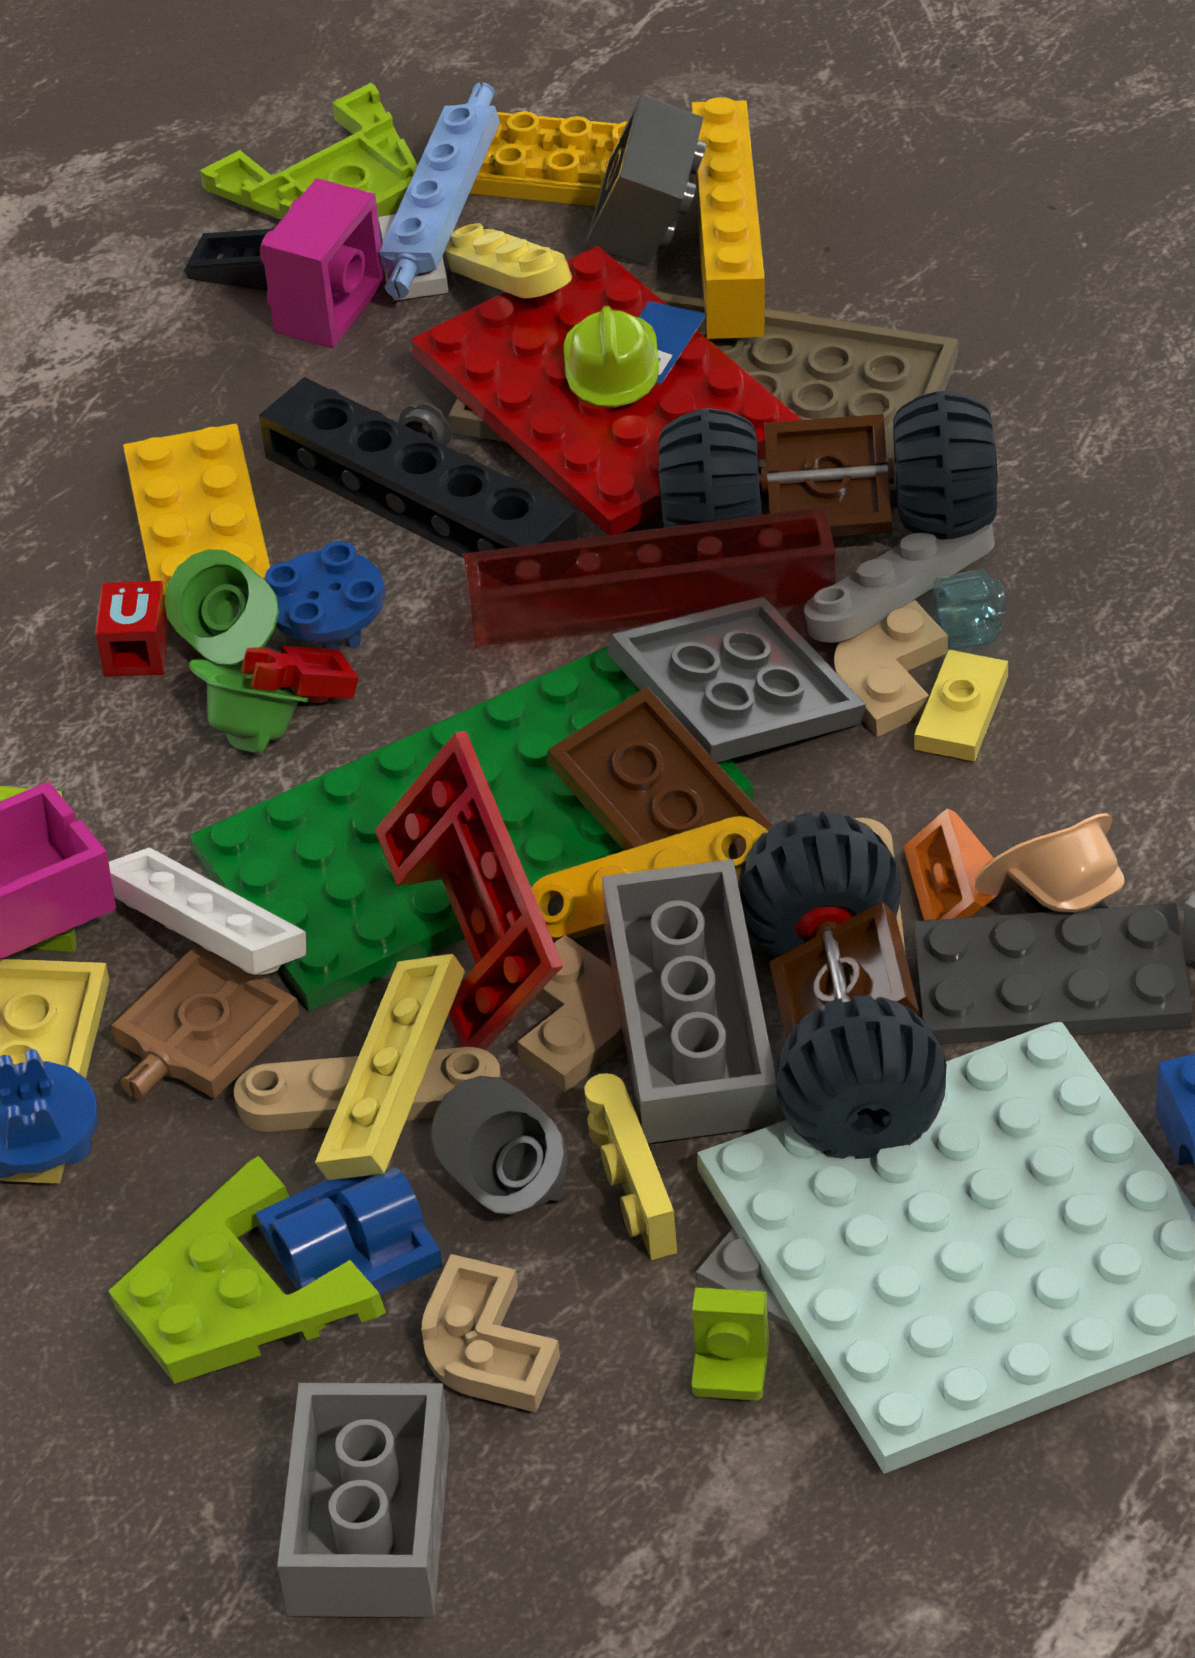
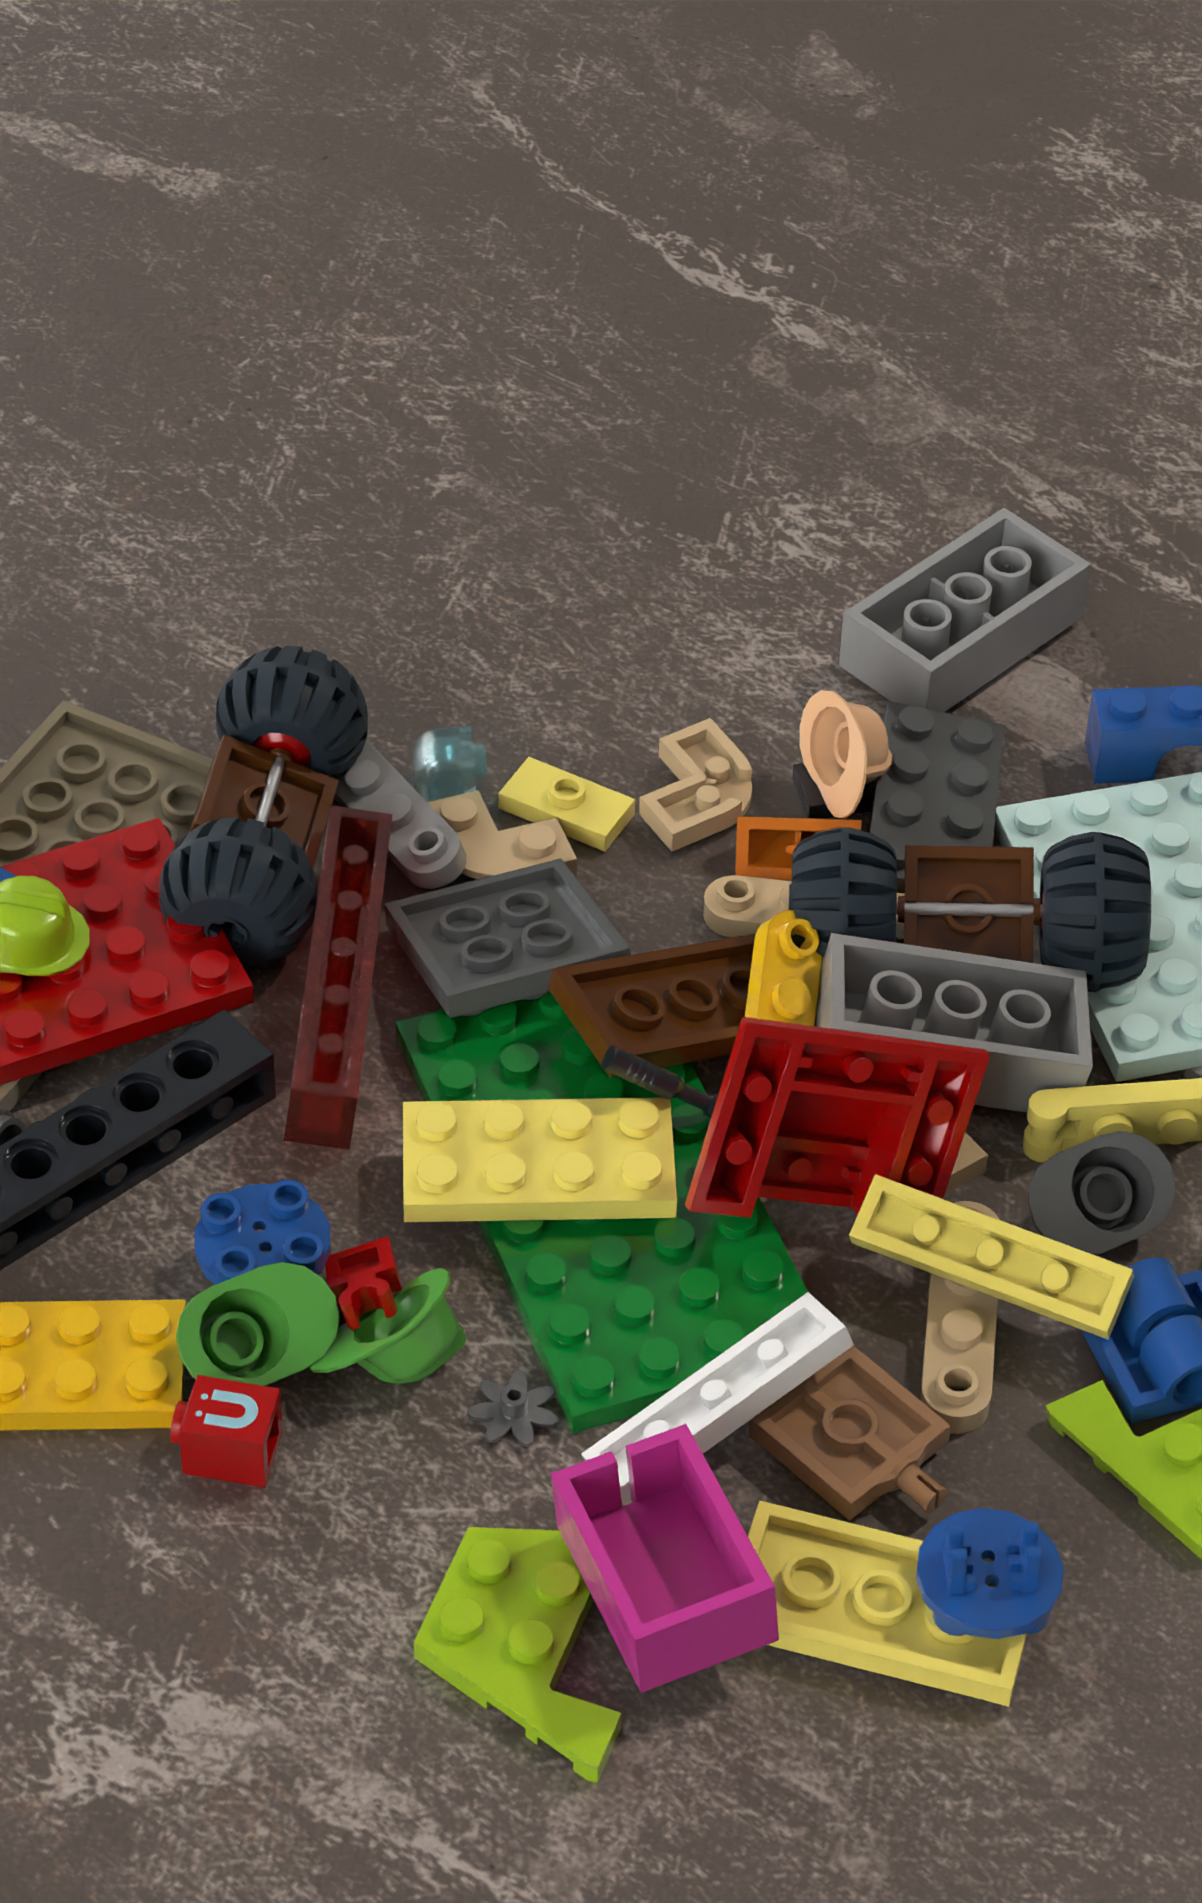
camera: 85 degrees left, 0 degrees up
(204, 804) = (513, 1409): none -> flat silver plant
(455, 692) = (538, 1160): none -> light yellow plate
(543, 800) = (655, 1079): none -> black piece
(1014, 803) = (710, 788): none -> tan plate

